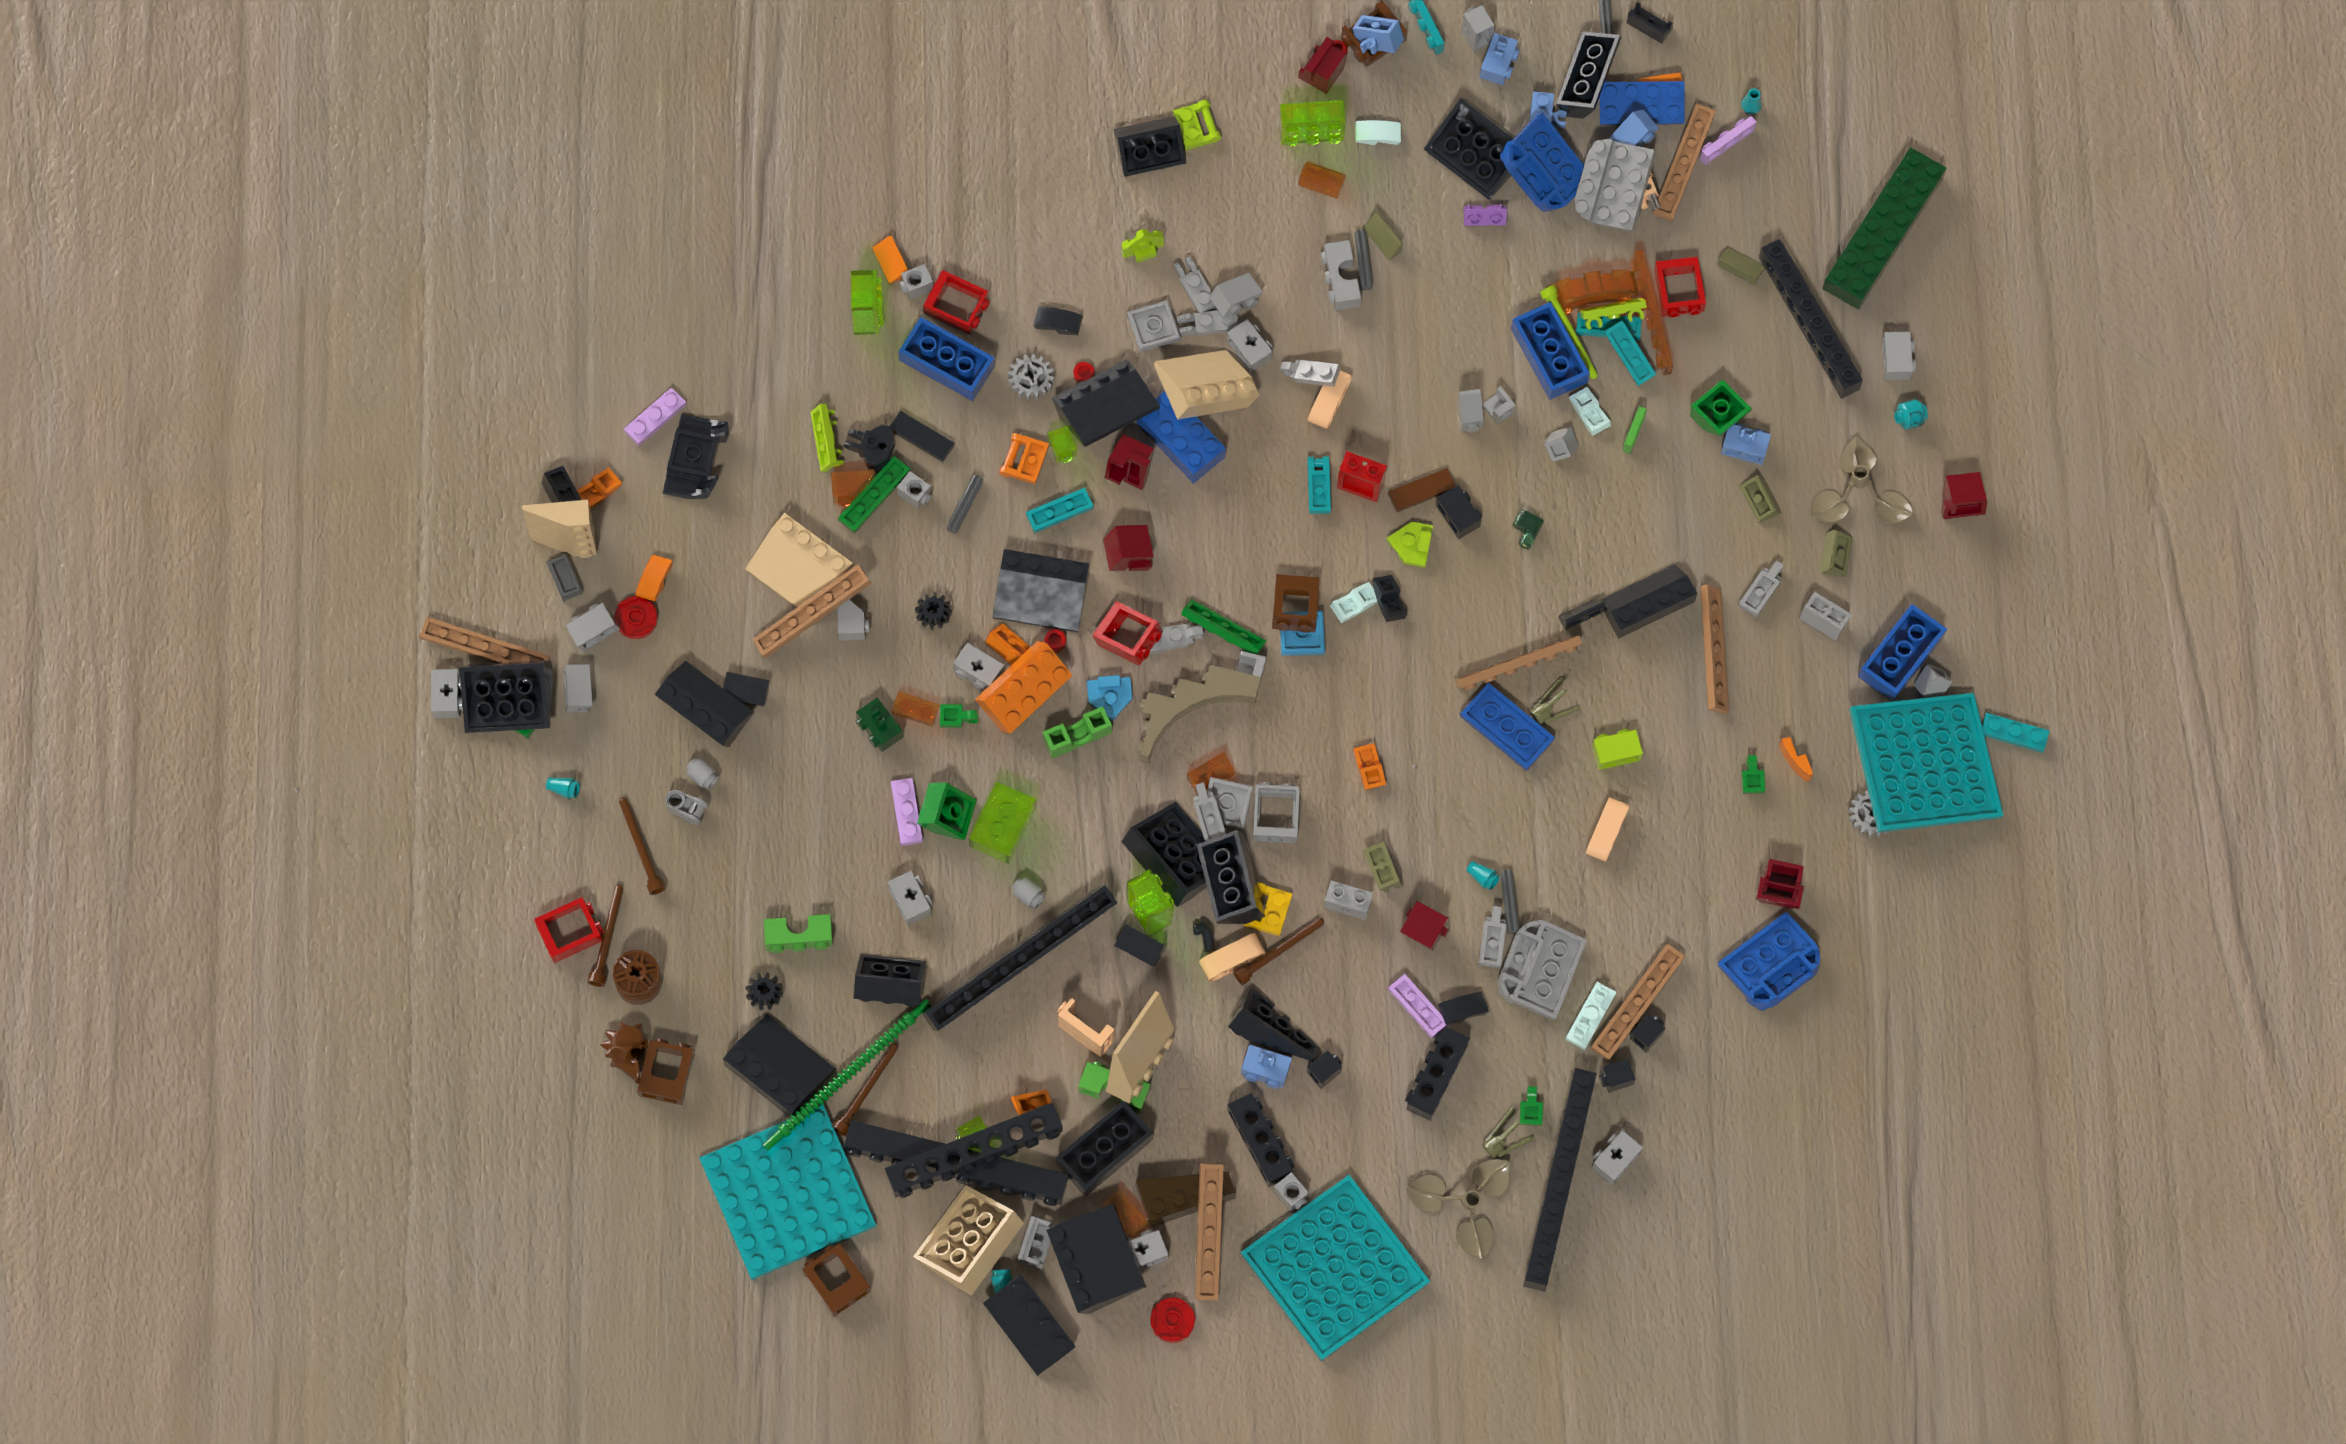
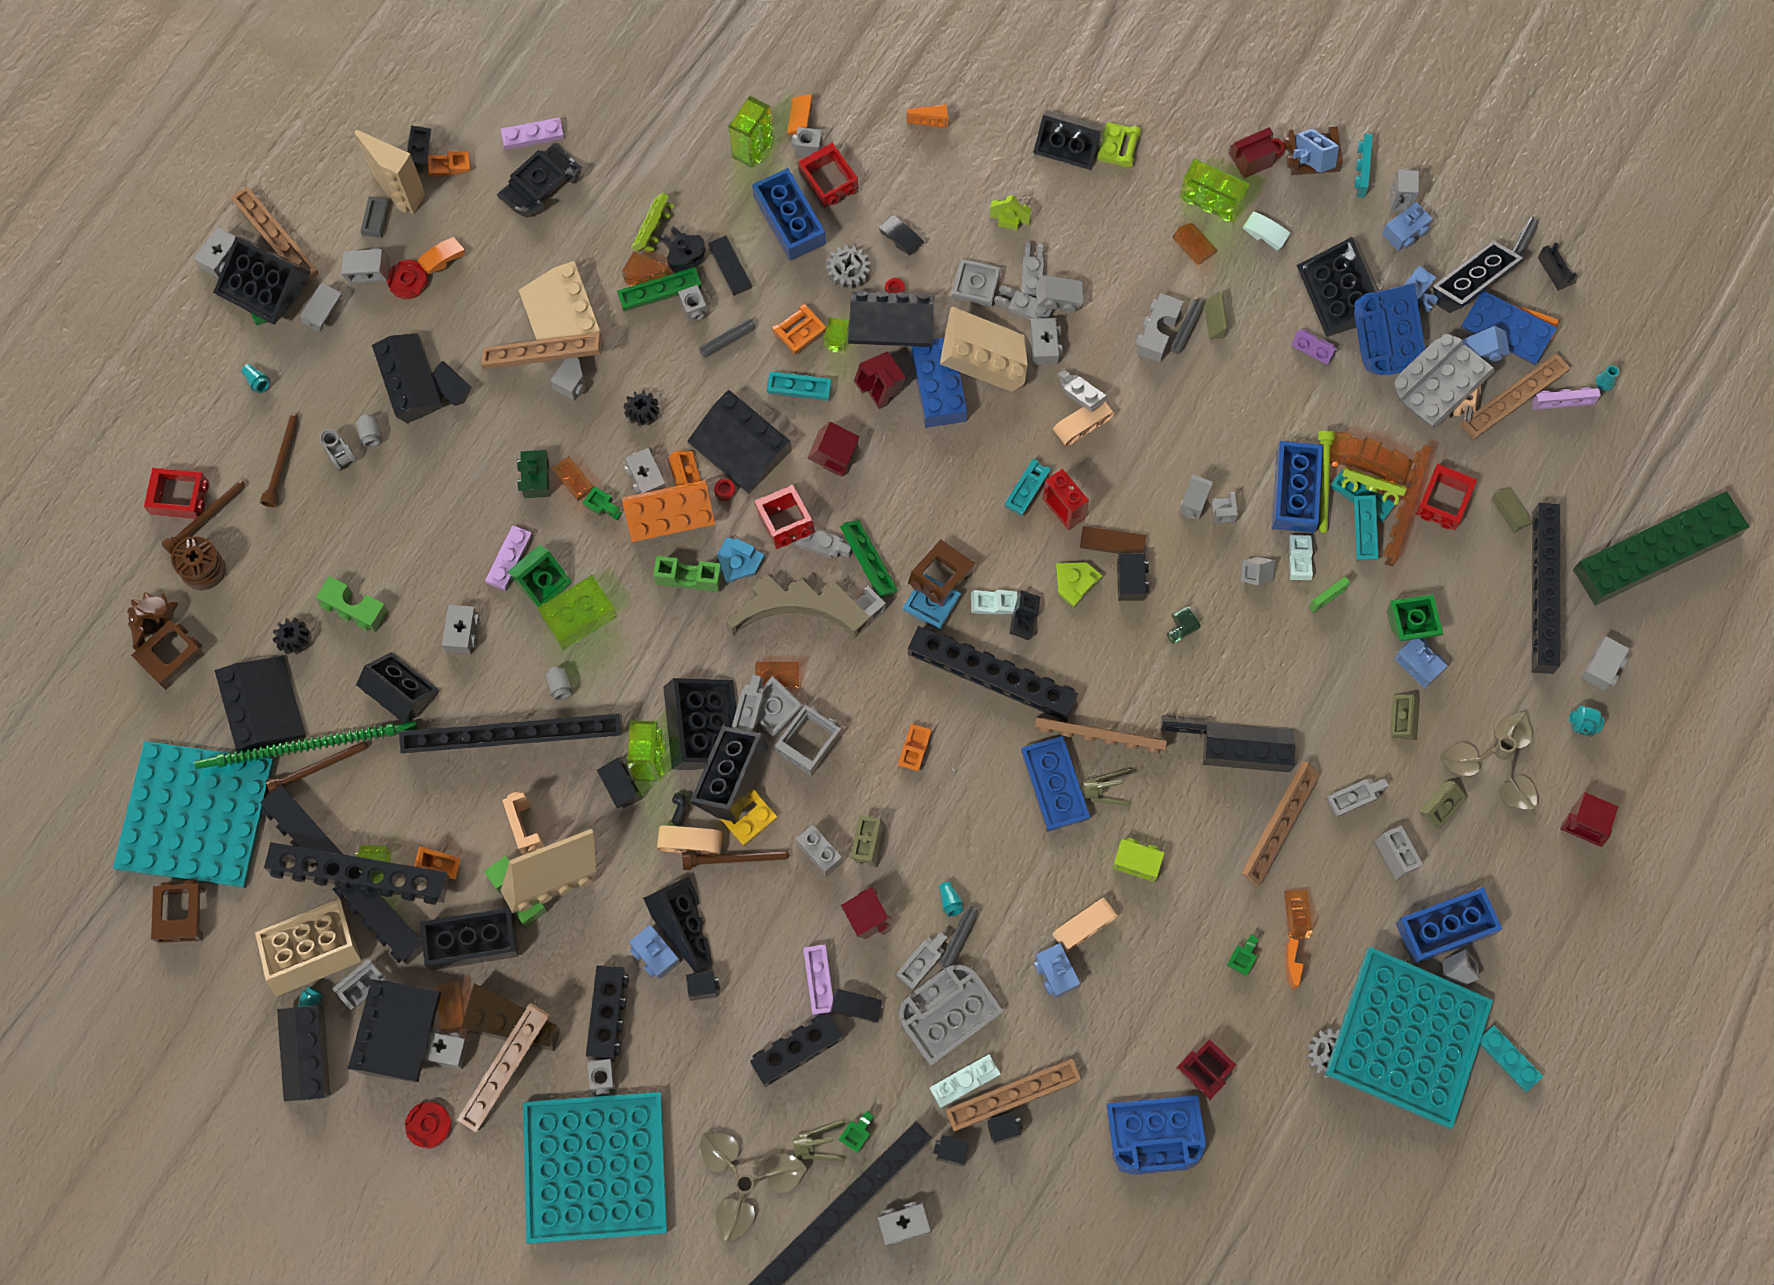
camera: 35 degrees right, 0 degrees up
(1011, 194) = (929, 116): none -> orange slope
(1385, 672) = (998, 683): none -> black brick
(1608, 881) = (1056, 971): none -> medium blue brick
(1782, 727) = (1298, 928): none -> clear orange slope

